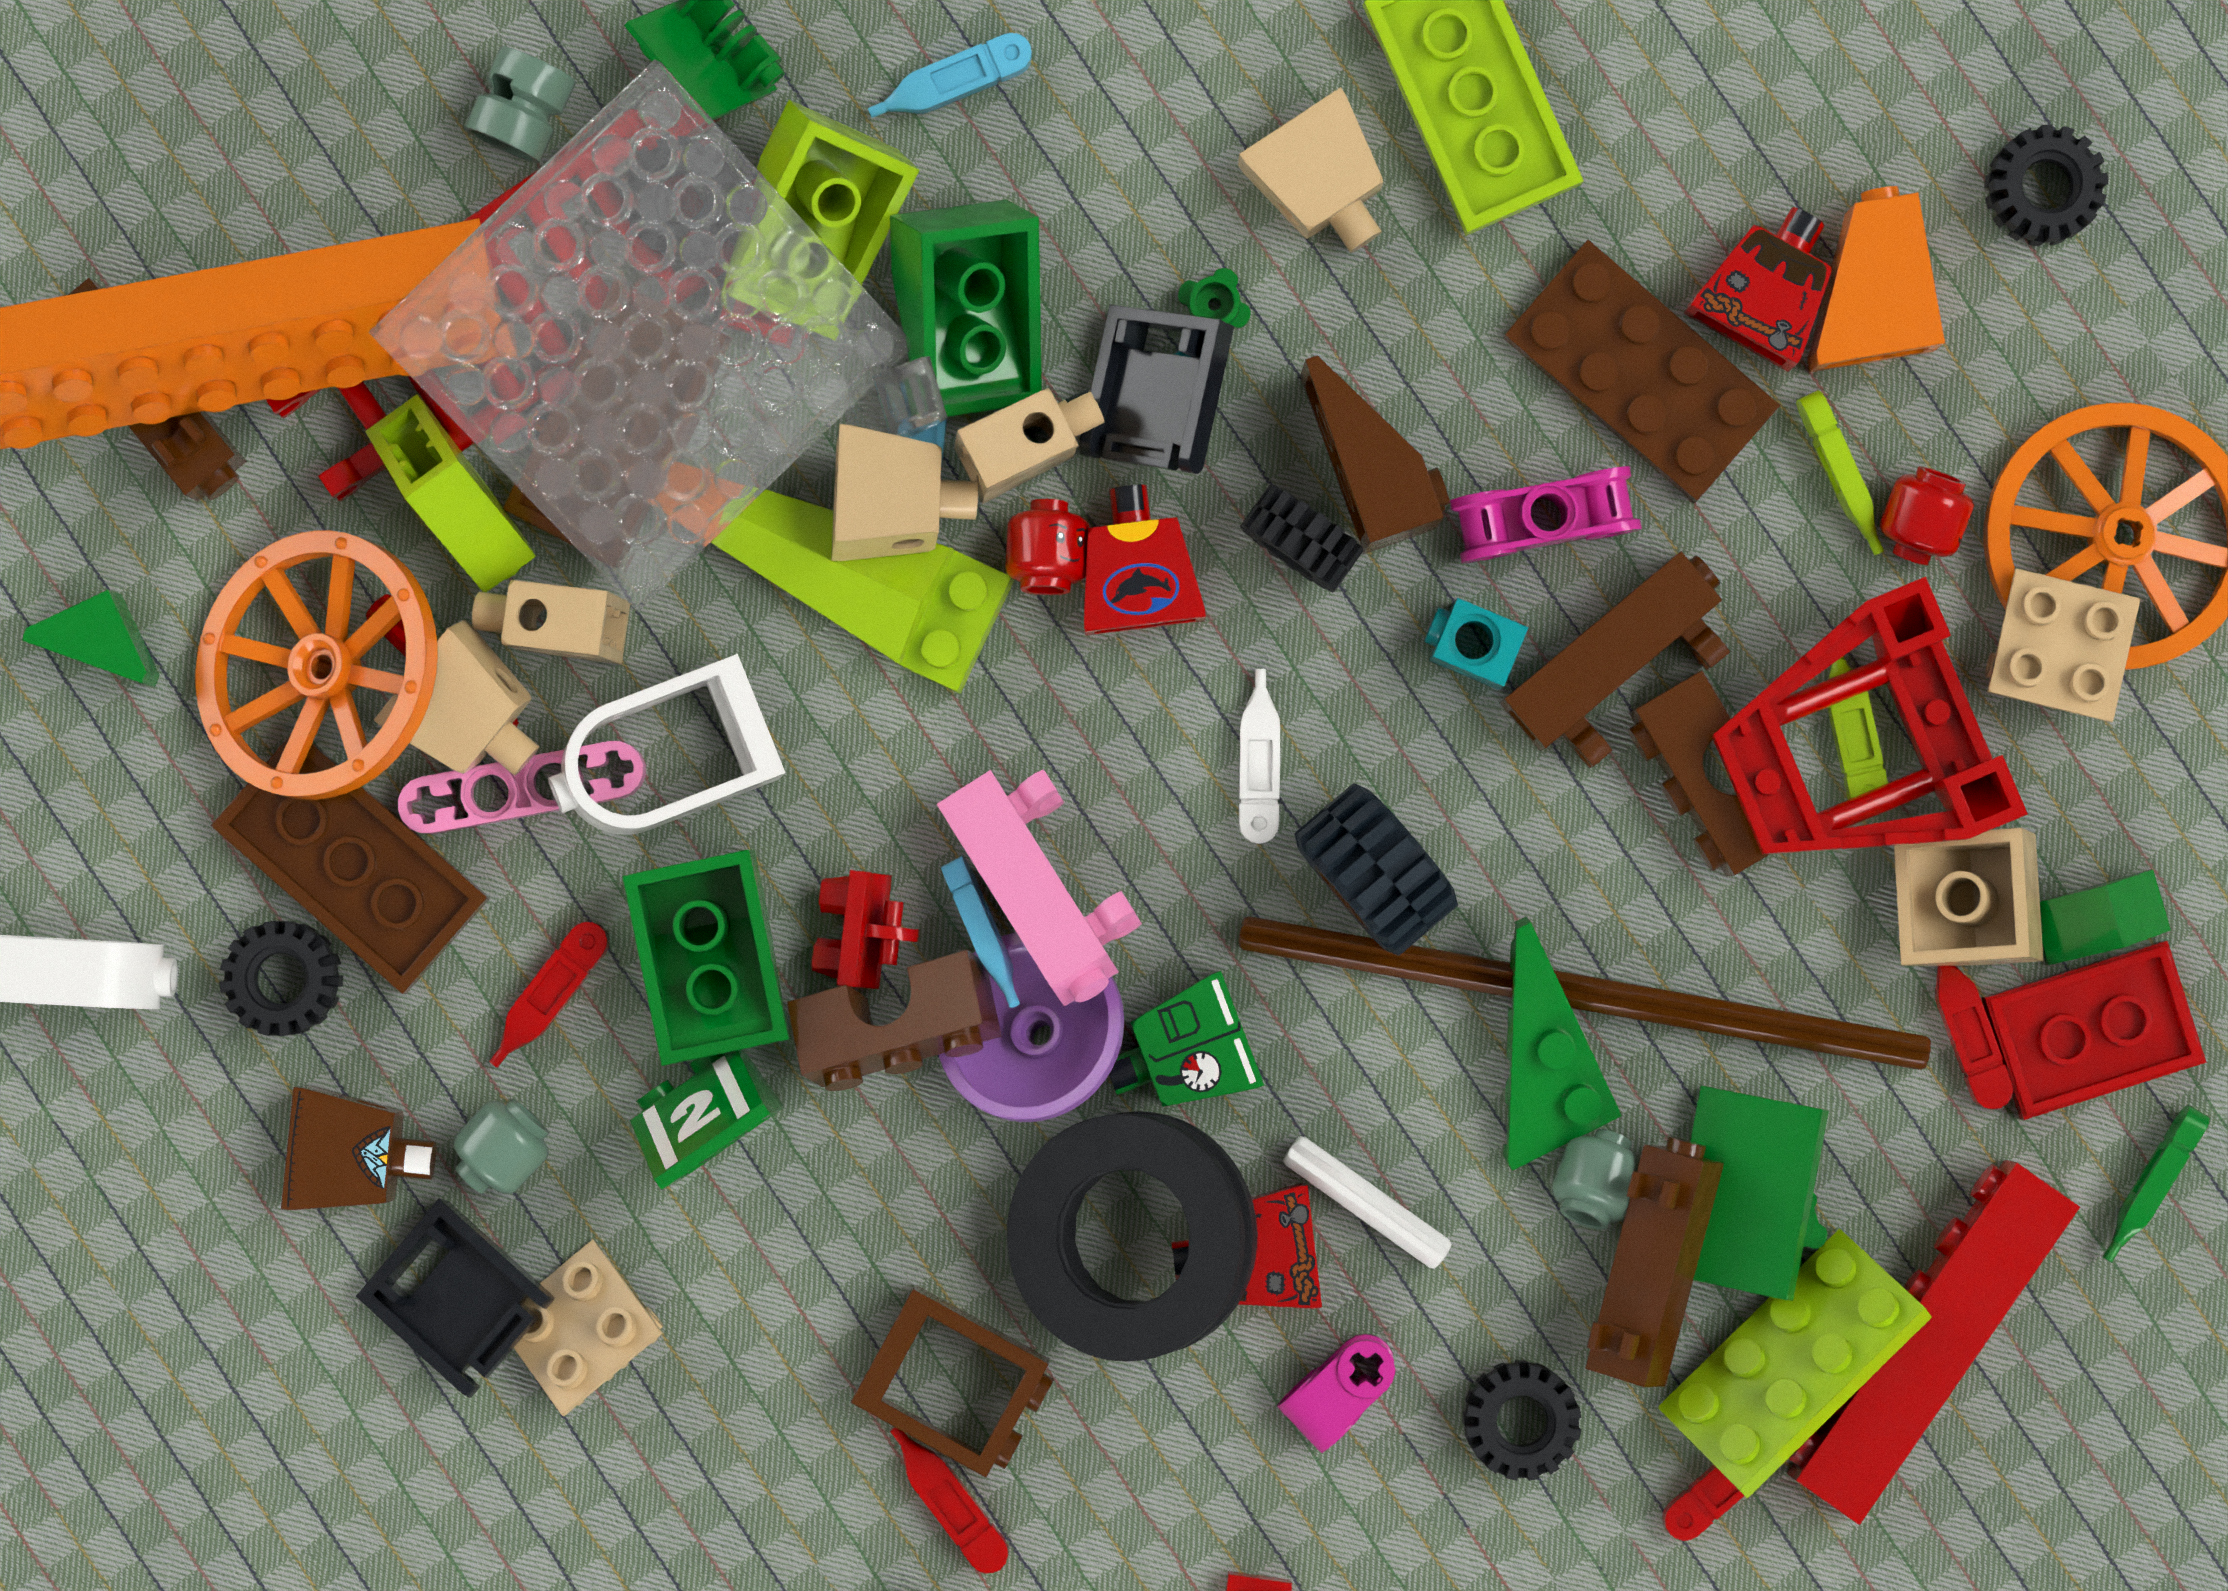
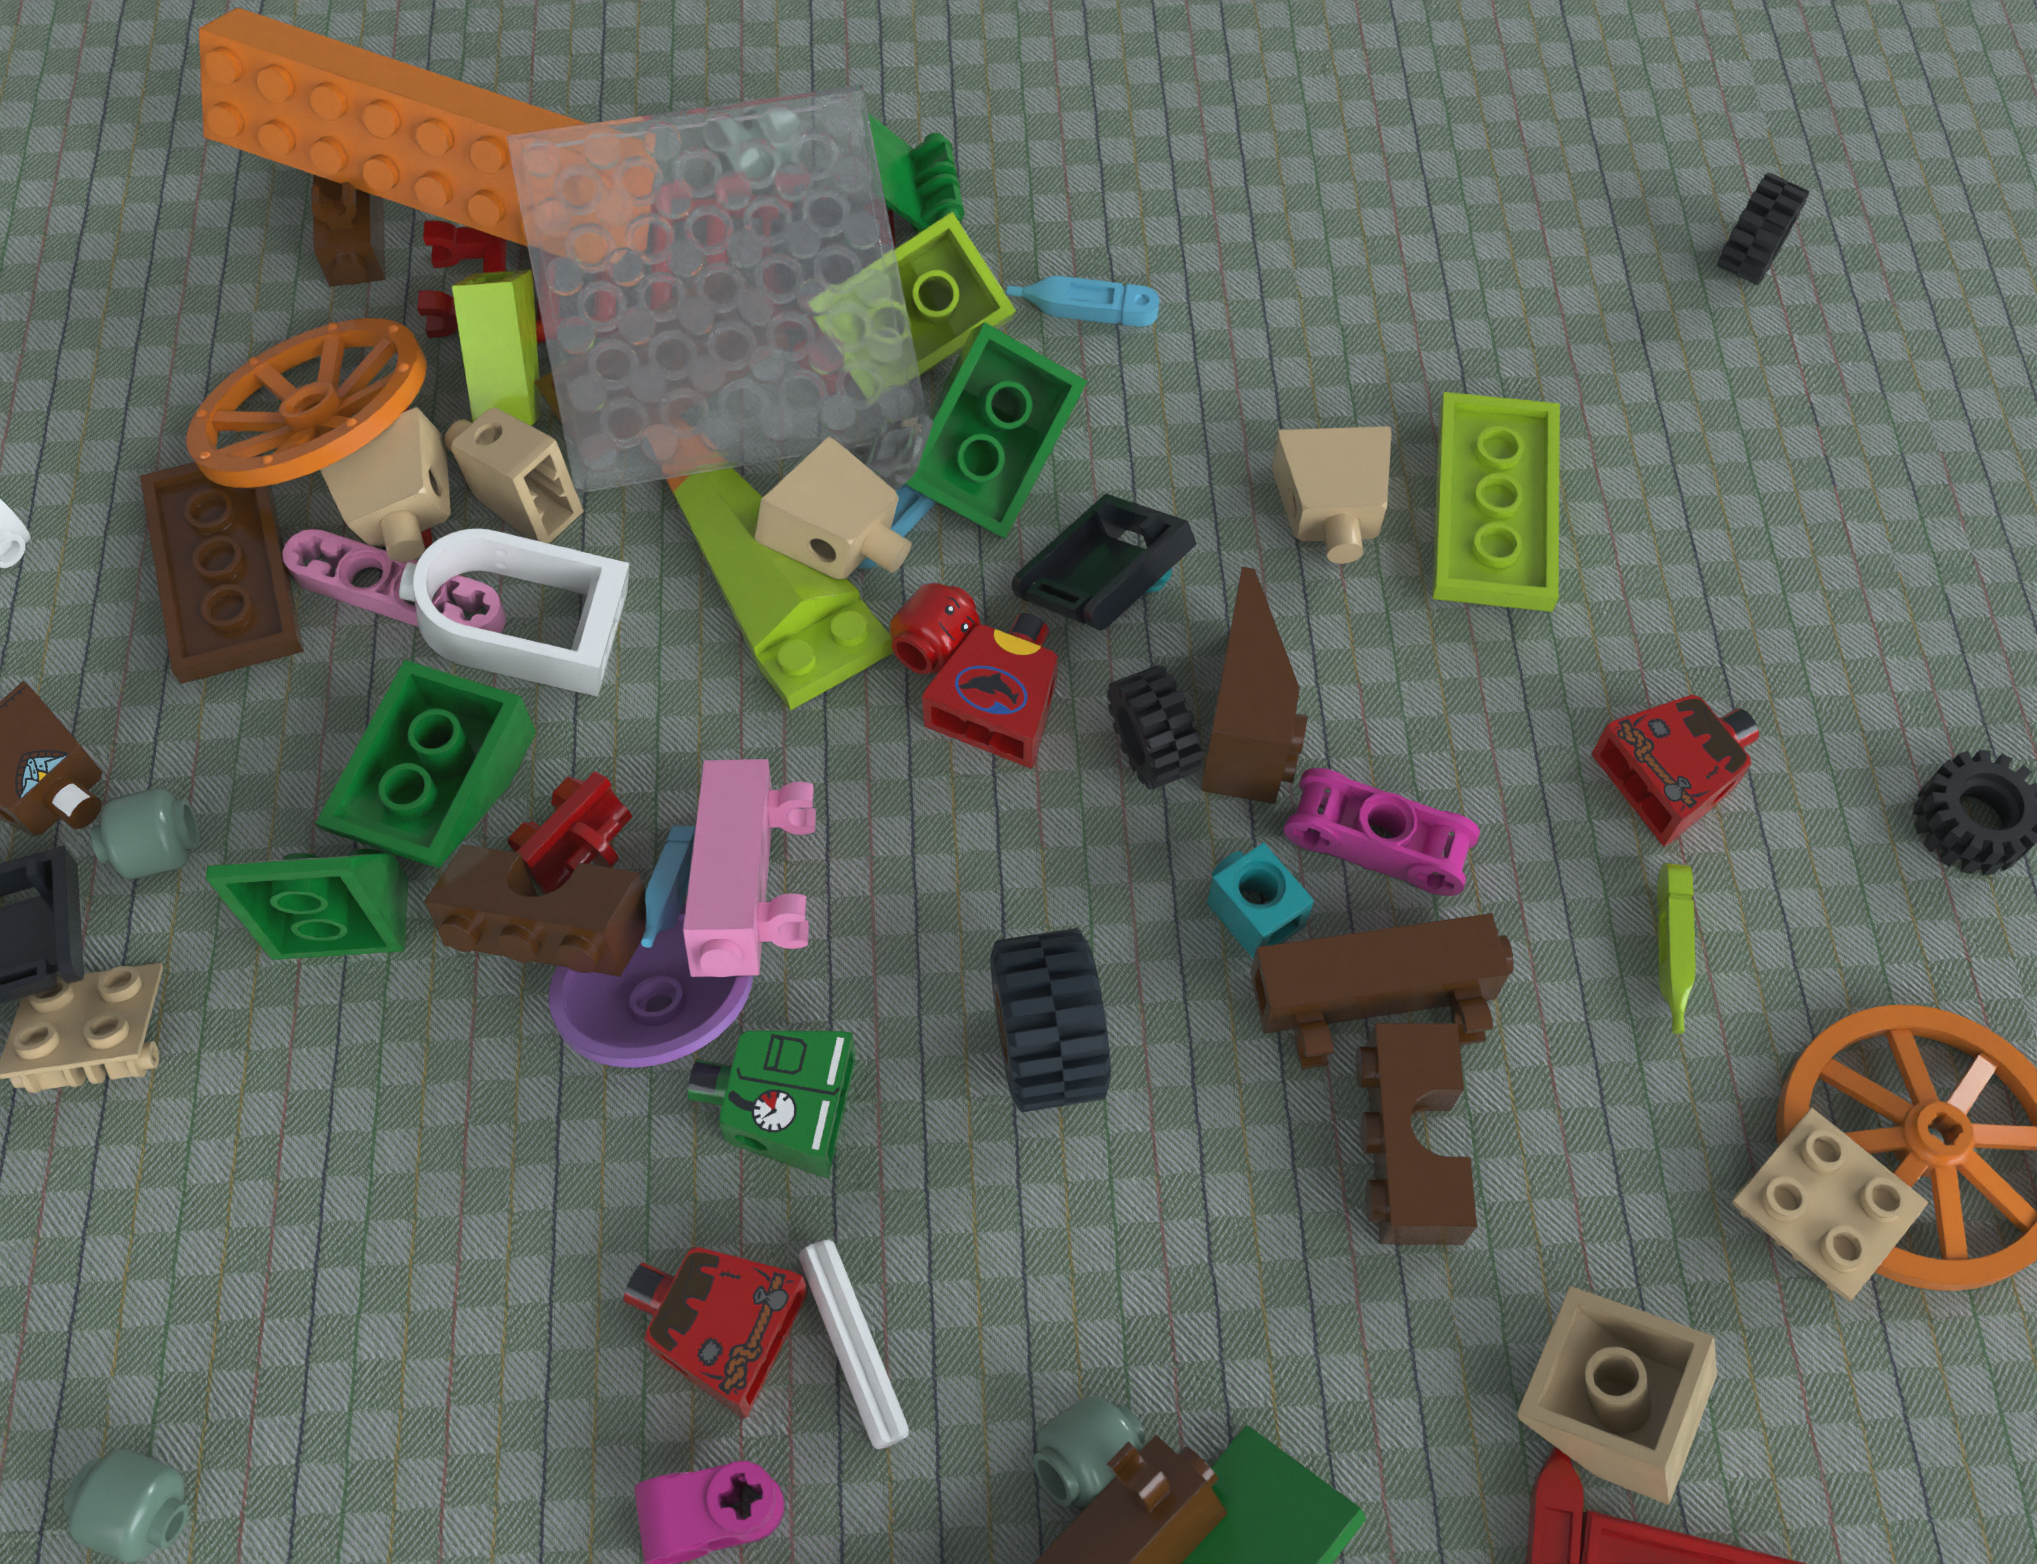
camera: 30 degrees right, 25 degrees down
(98, 634) = (179, 313): green slope -> none
(242, 978) = (81, 589): black tyre -> none
(552, 987) = (293, 744): red piece -> none
(953, 1506) = (270, 1400): red piece -> none
(1002, 456) = (967, 535): tan torso -> none
(1028, 1393) = (320, 1213): reddish brown window -> none
(1049, 1263) = (658, 1290): black tyre -> none
(1221, 287) = (1206, 532): green plate -> none
(1259, 765) = (1002, 903): white piece -> none
(1553, 1075) = (1106, 1319): green wing -> none
(1591, 994) = (1202, 1285): reddish brown axle -> none
(1641, 371) = (1531, 776): reddish brown plate -> none
(1856, 740) = (1574, 1185): lime piece -> none
(1879, 287) = (1784, 815): orange slope -> none
(1926, 515) = (1743, 1018): red head -> none
(1935, 713) = (1666, 1139): red windscreen -> none
(2102, 918) = (1751, 1500): green slope -> none

